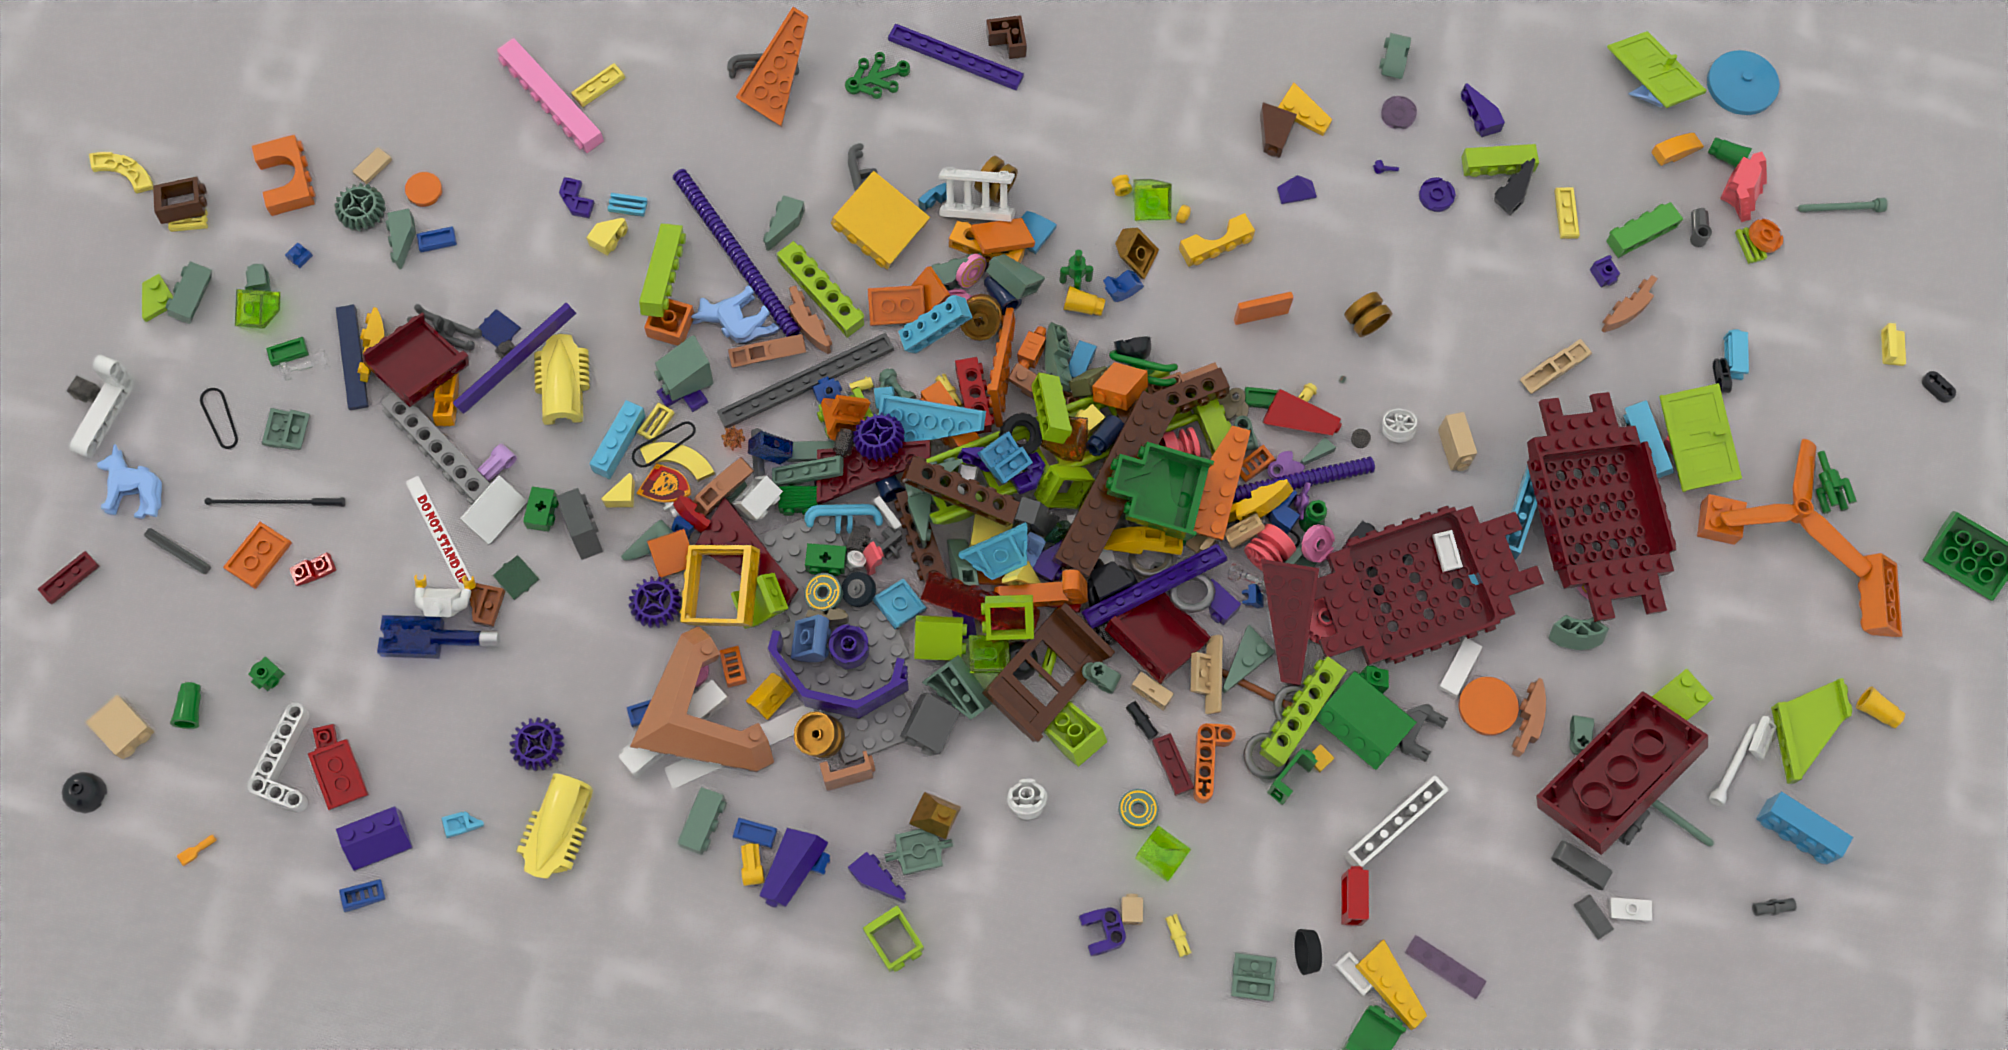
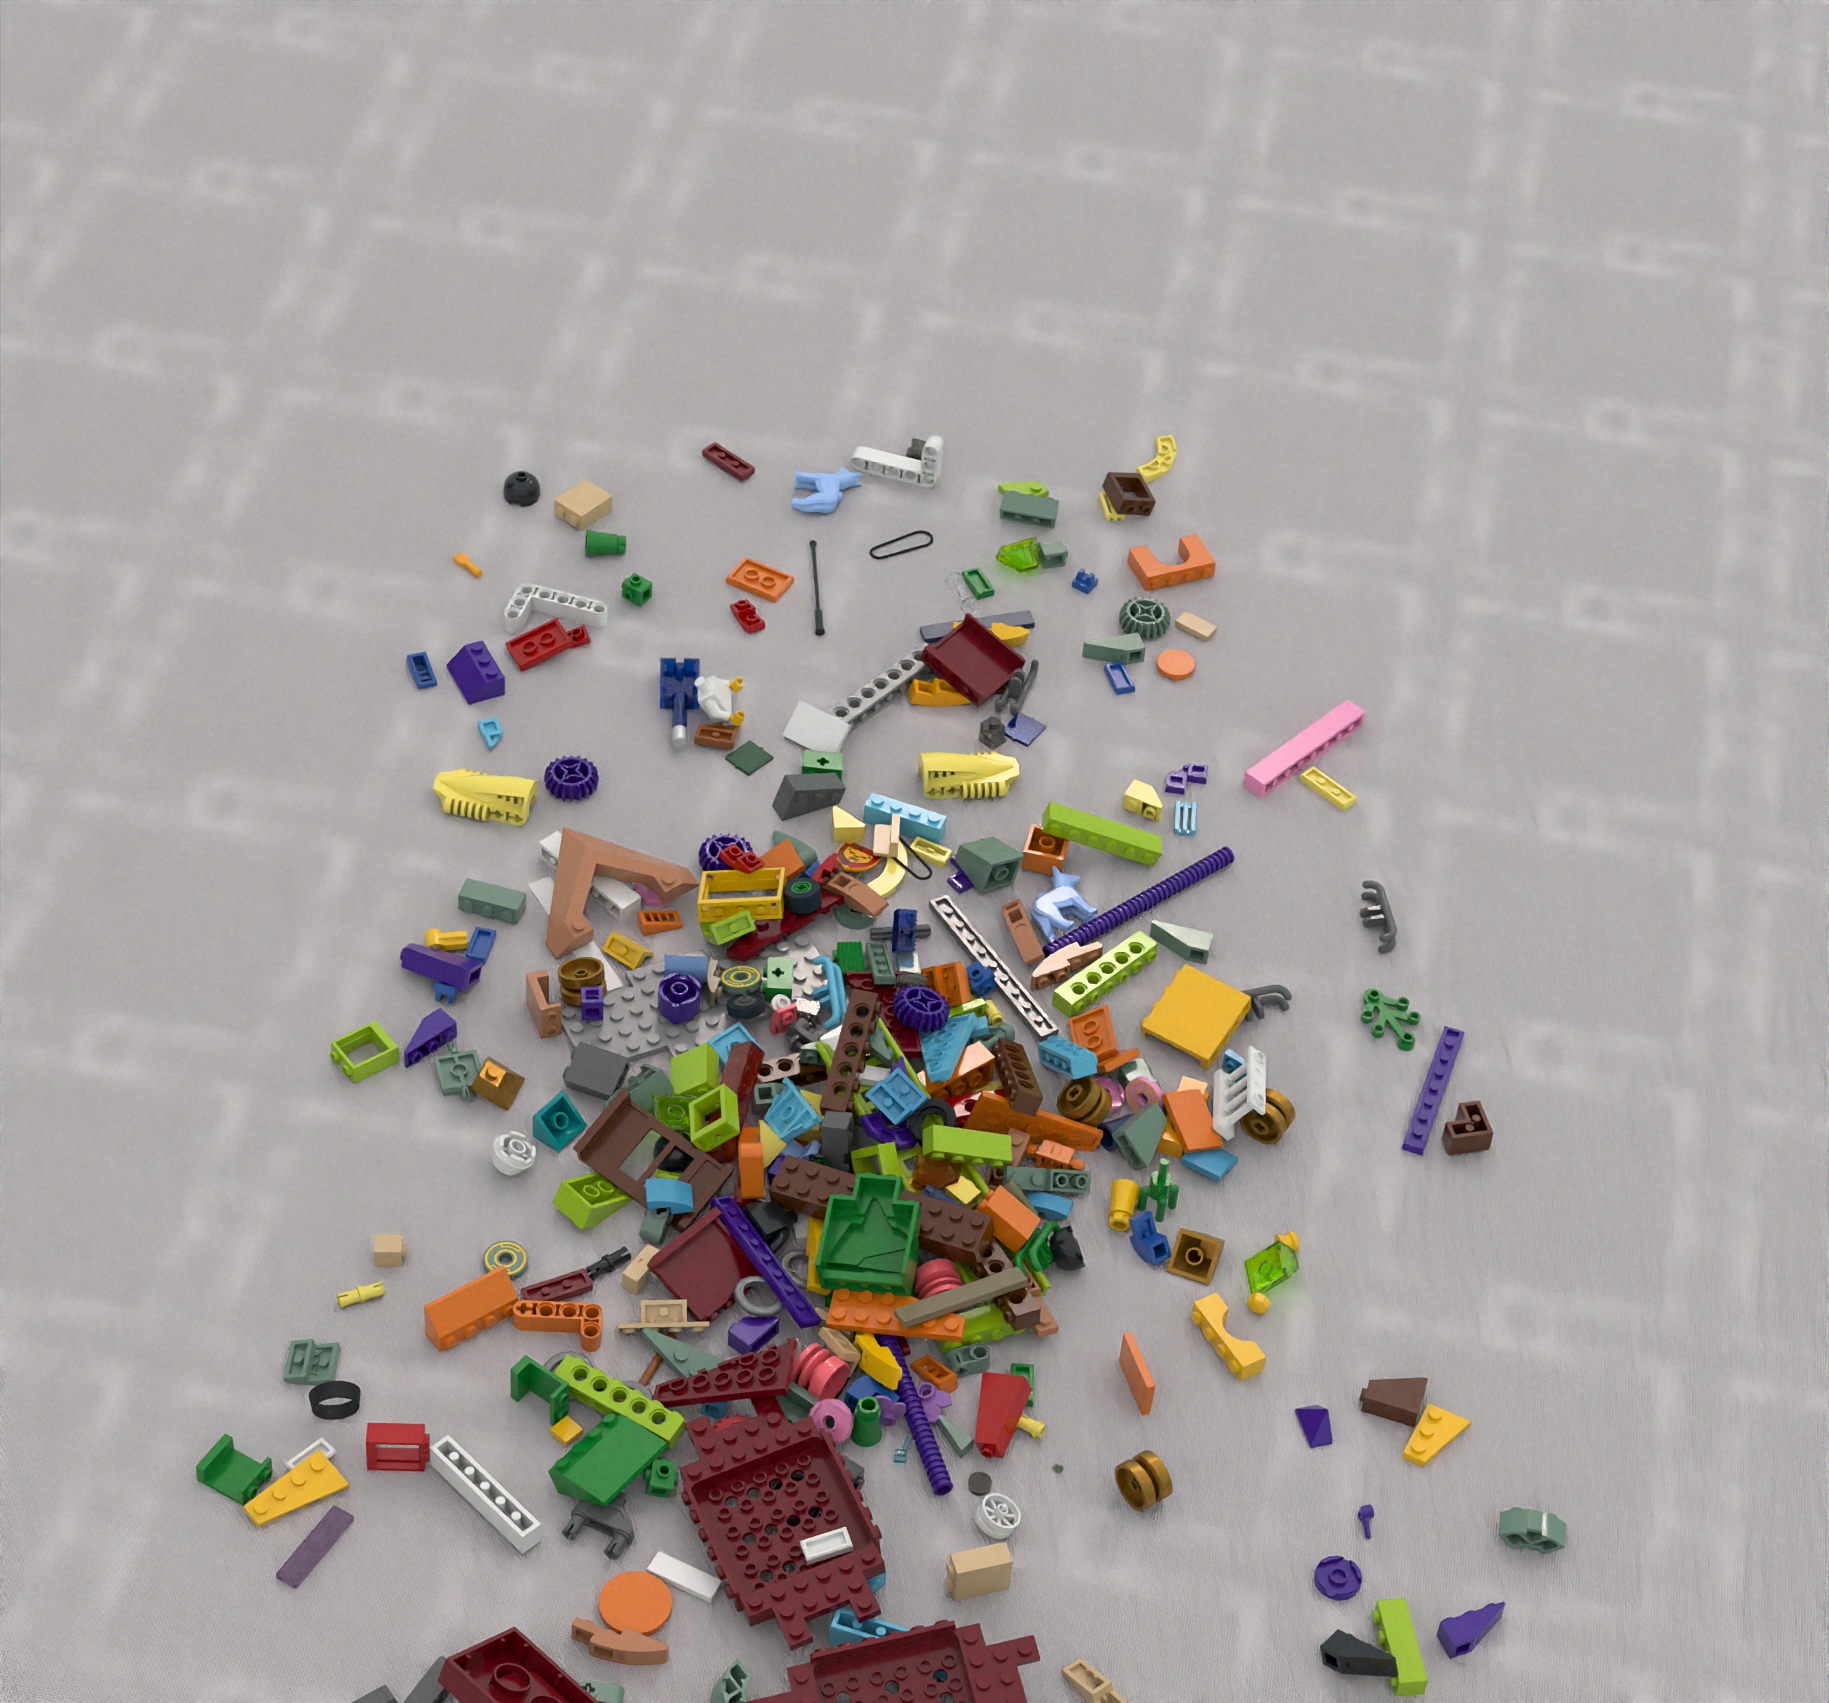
camera: 85 degrees right, 25 degrees down
(177, 551) = (760, 527): dark grey axle -> none
(285, 429) = (893, 586): sand green slope -> none
(438, 531) = (793, 701): white sticker -> none
(500, 458) = (874, 736): lavender piece -> none
(514, 358) = (986, 733): dark purple tile -> none
(645, 454) = (887, 838): none -> panel
(677, 583) = (739, 860): none -> red slope
(735, 535) = (802, 895): none -> black wheel
(736, 442) = (918, 904): clear orange gear -> none
(757, 498) = (844, 921): white brick -> none
(772, 77) = (1362, 917): orange wing -> none
(836, 704) = (636, 1031): dark purple panel -> none
(854, 724) = (592, 1003): none -> dark purple brick
(961, 364) = (1016, 1077): none -> reddish brown brick
(985, 760) = (557, 1122): none -> teal slope
(1086, 661) = (669, 1193): none -> dark azure slope
(1108, 928) = (362, 1233): dark purple piece -> none
(1162, 853) = (450, 1271): clear neon green slope -> none
(1203, 835) = (470, 1309): none -> orange slope
(1213, 426) = (960, 1297): none -> dark tan tile
(1234, 407) = (1008, 1352): dark tan plate -> none
(1336, 493) = (900, 1455): none -> clear light blue hand
(1398, 112) = (1452, 1538): clear purple tile -> none

